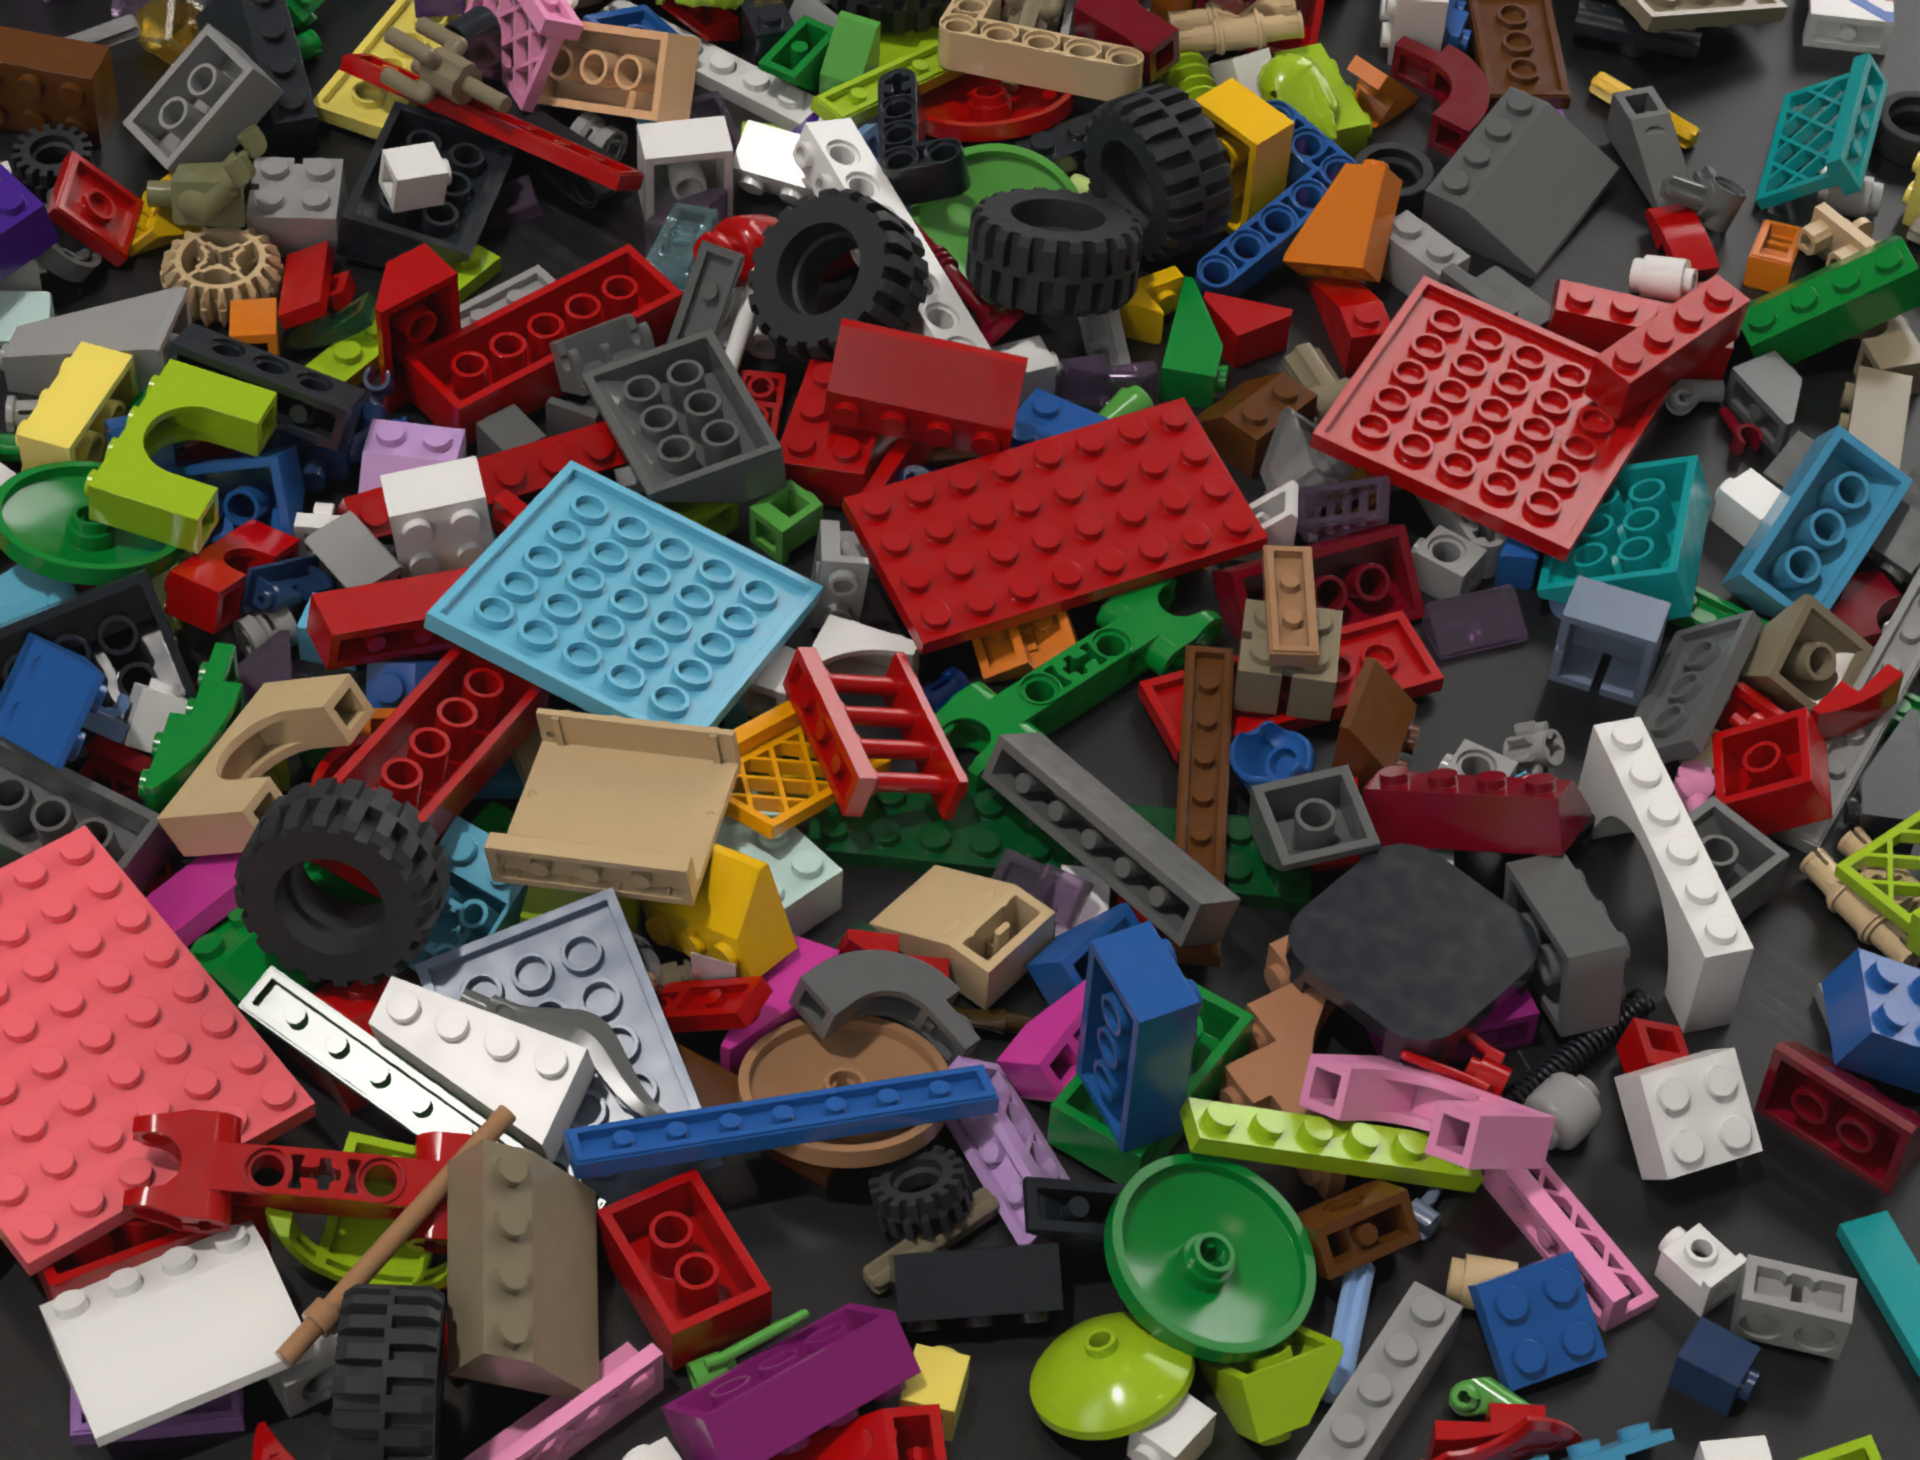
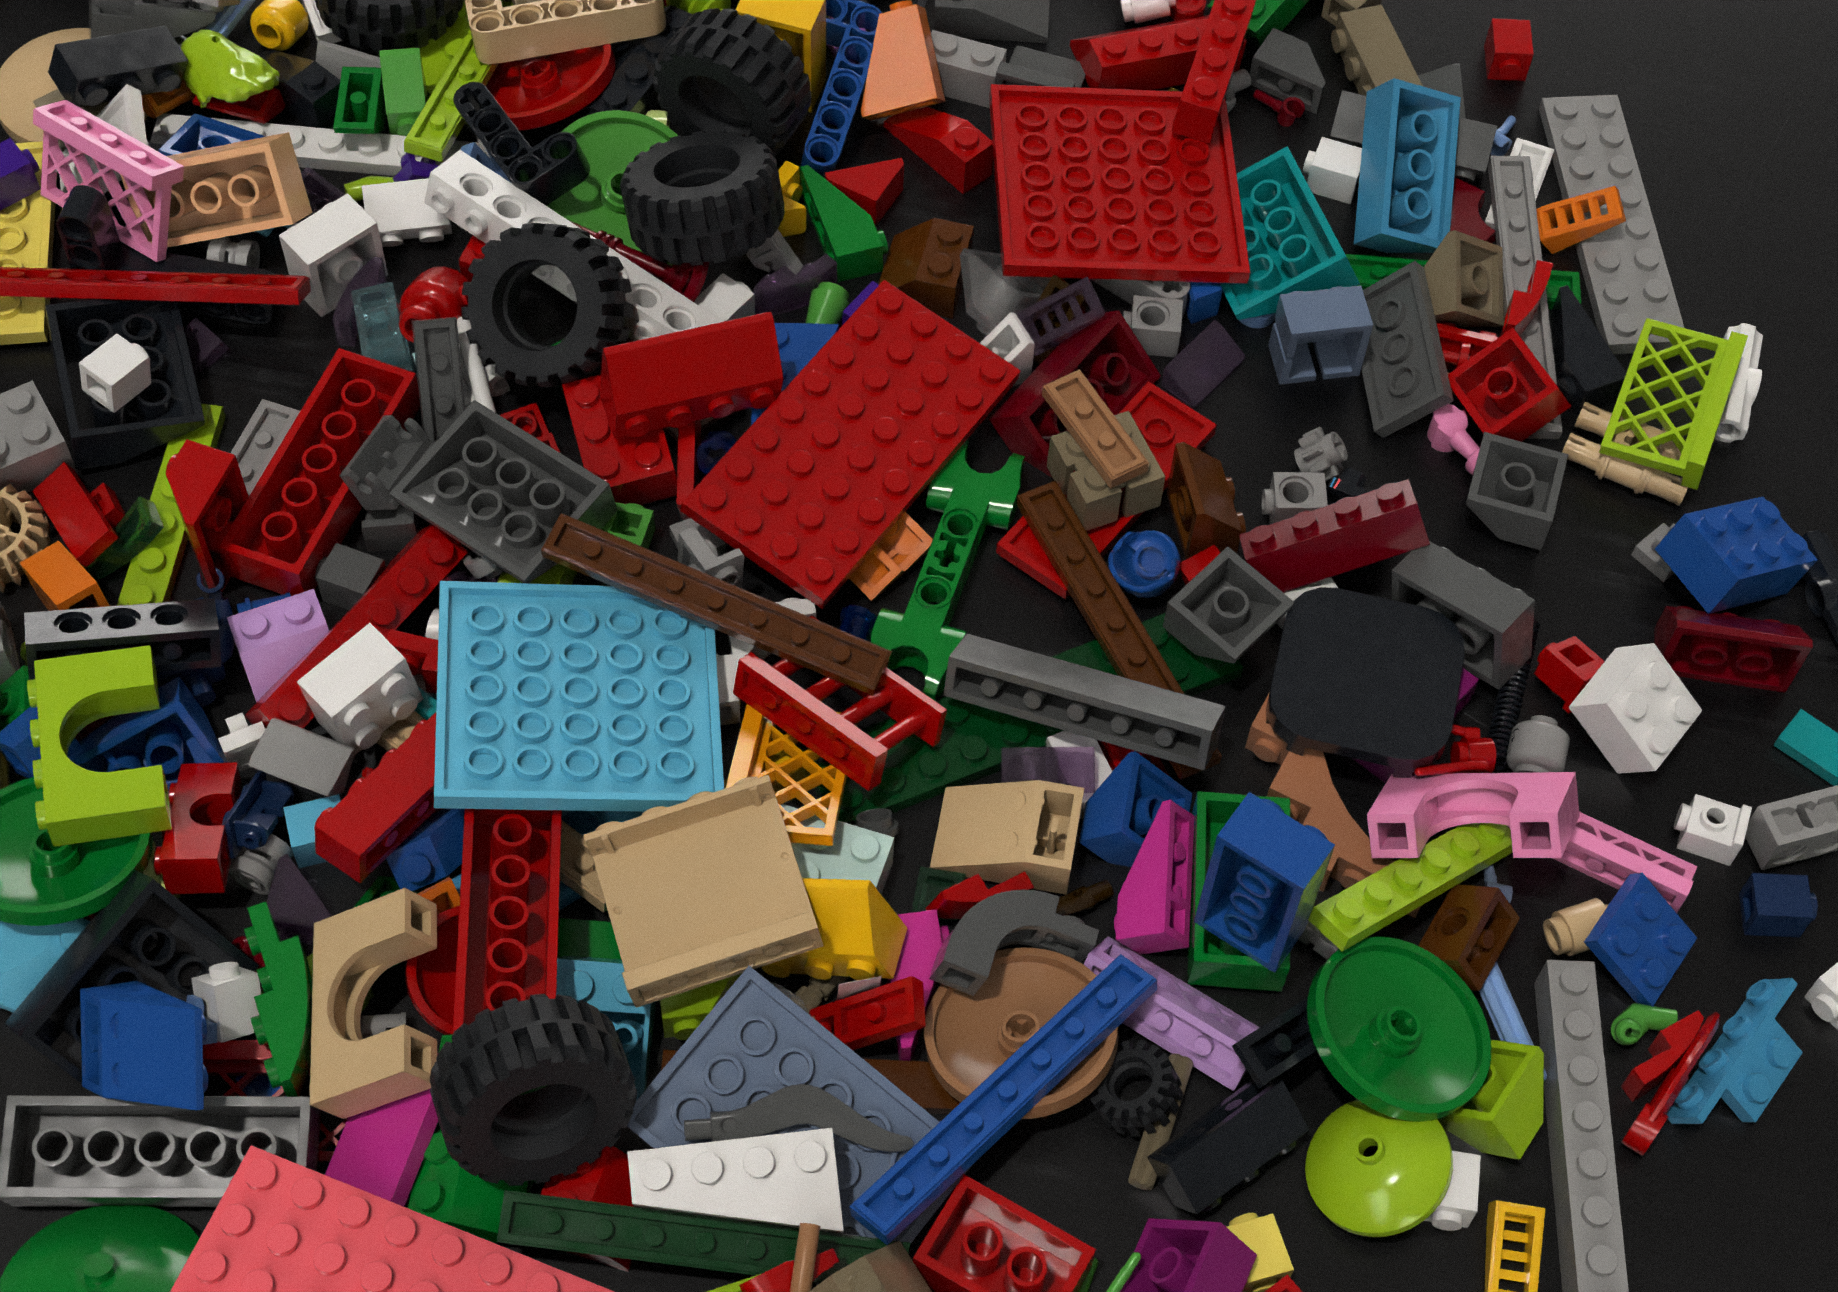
camera: 30 degrees left, 10 degrees up
(439, 69) = (77, 261): dark tan plant -> none
(813, 595) = (716, 604): none -> reddish brown tile
(849, 861) = (879, 820): none -> dark grey plate
(1314, 372) = (946, 204): dark tan piece -> none
(1705, 937) = (1562, 556): white arch -> none

